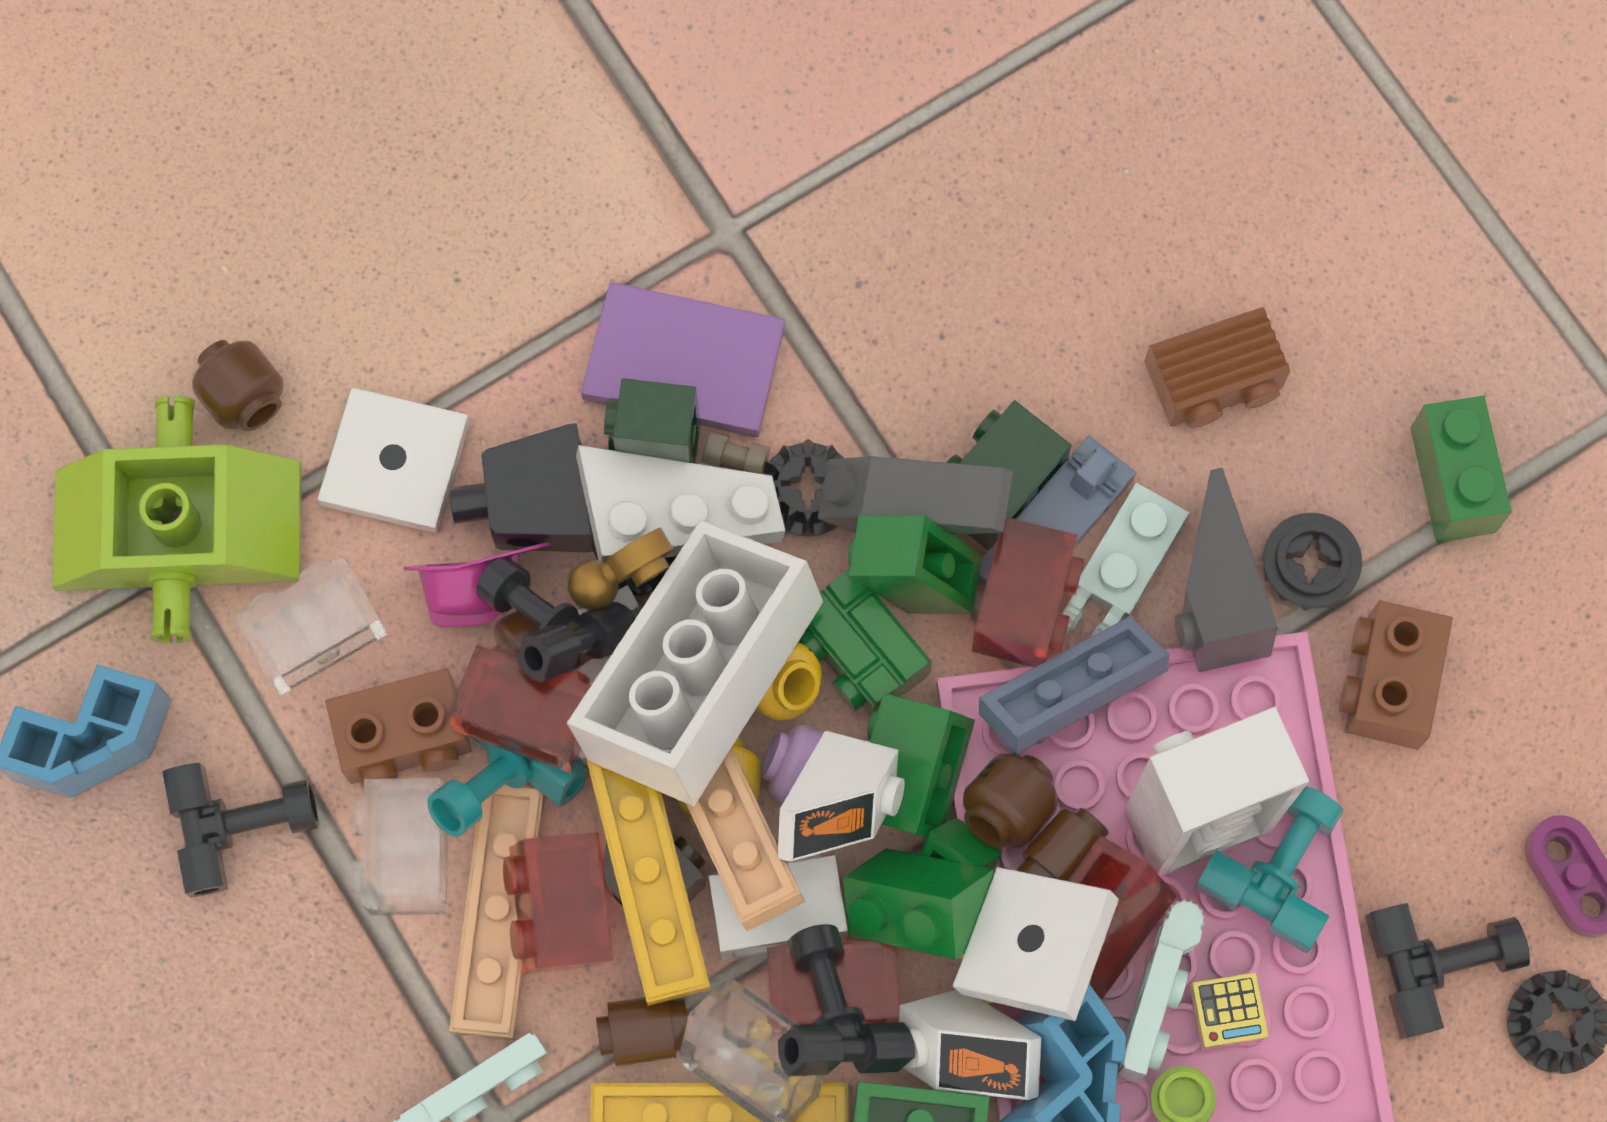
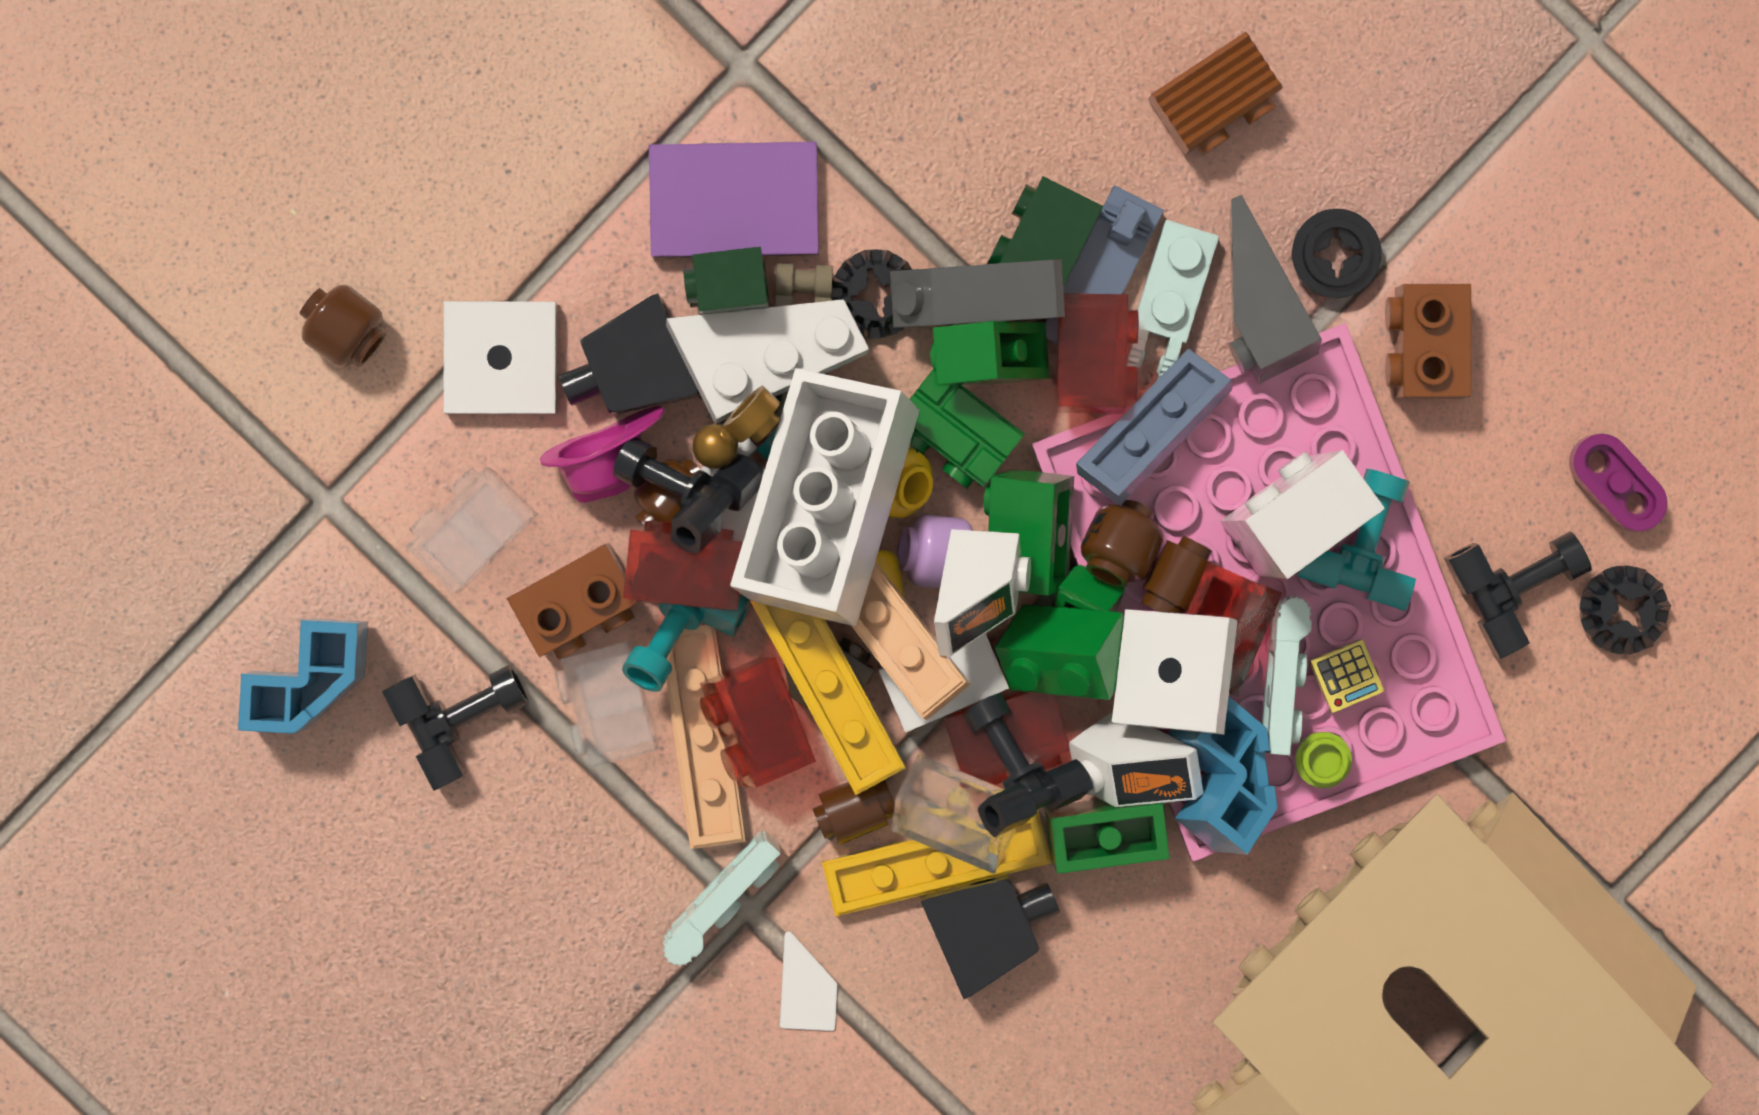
camera: 15 degrees left, 15 degrees up
(232, 528) = (378, 451): lime slope -> none
(1460, 468) = (1451, 139): green brick -> none

